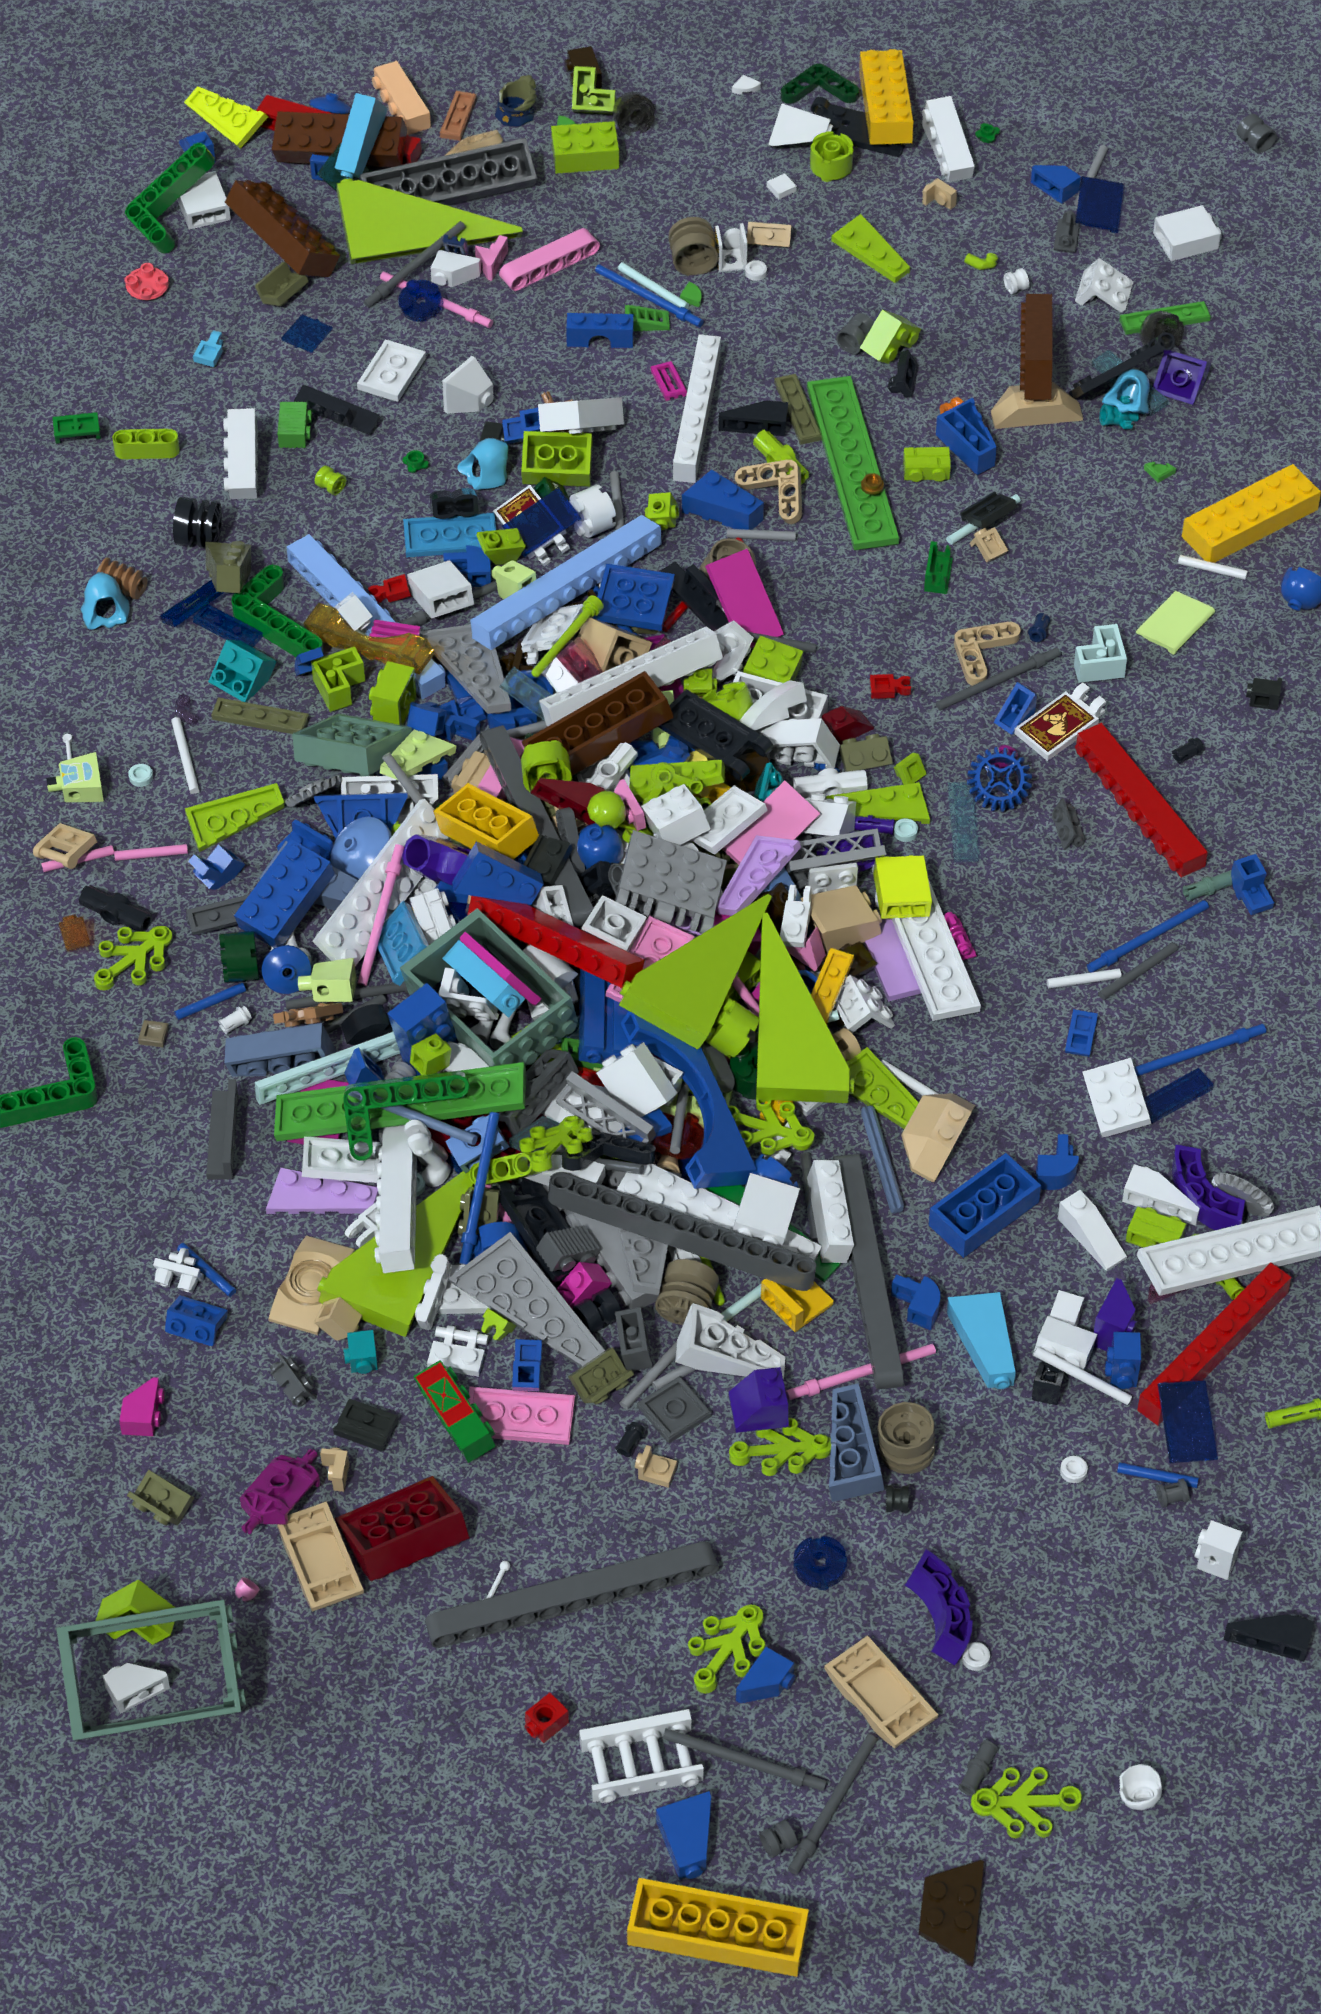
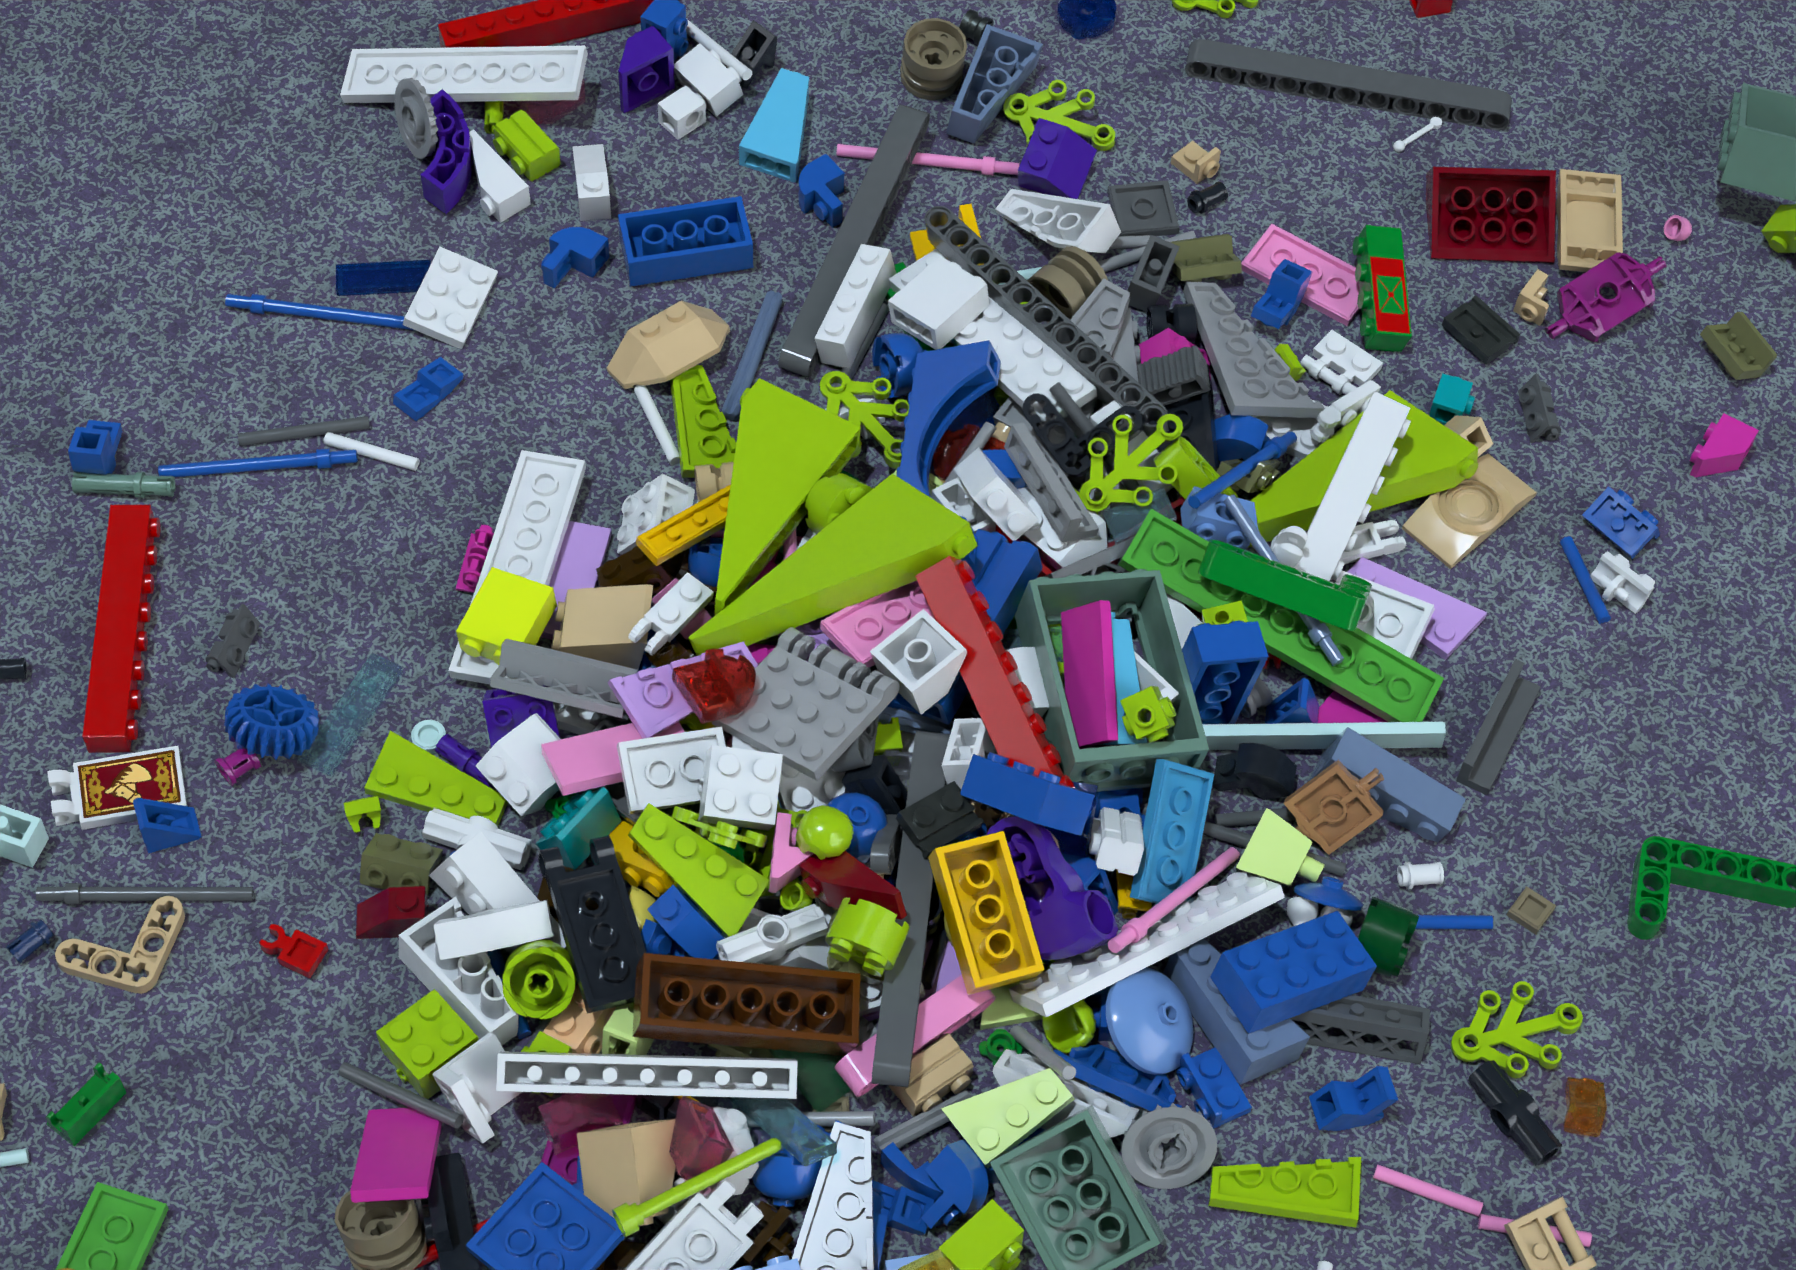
camera: 155 degrees left, 5 degrees up
(447, 950) = (1136, 712): none -> lime brick
(731, 863) = (717, 685): none -> clear red slope

